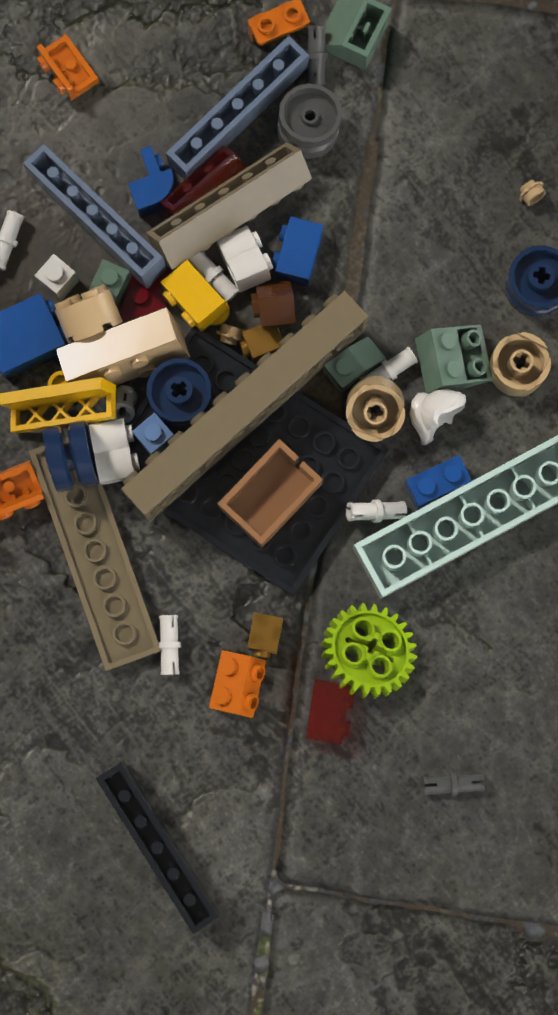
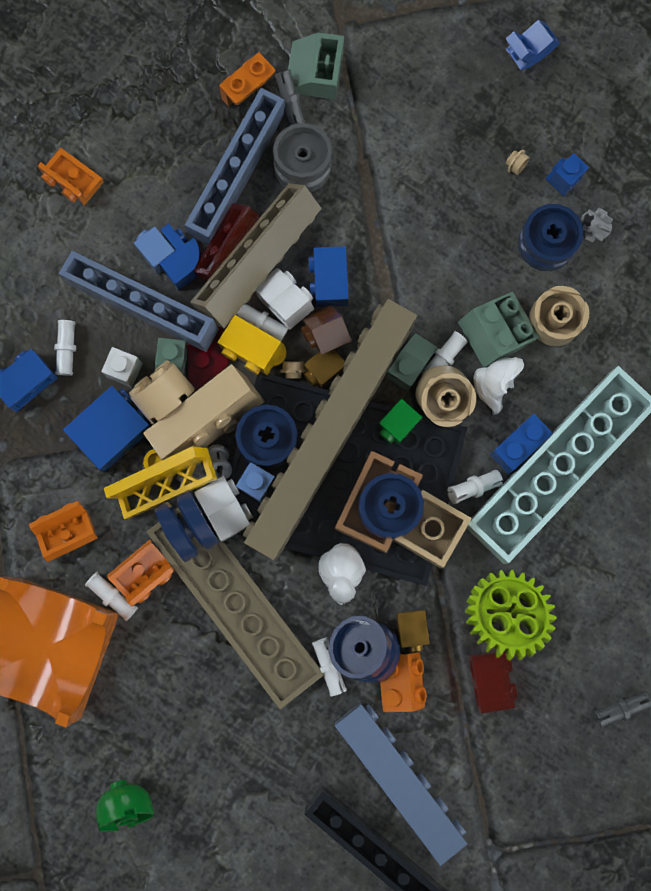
camera: 20 degrees left, 0 degrees up
(127, 166) = (153, 248): none -> medium blue brick
(202, 782) = (400, 783): none -> sand blue brick
(209, 637) = (364, 649): none -> dark blue wheel
(212, 553) = (341, 572): none -> white hair
(283, 481) = (407, 502): none -> dark blue wheel
(315, 537) = (436, 532): none -> tan brick
(318, 421) = (398, 422): none -> green brick

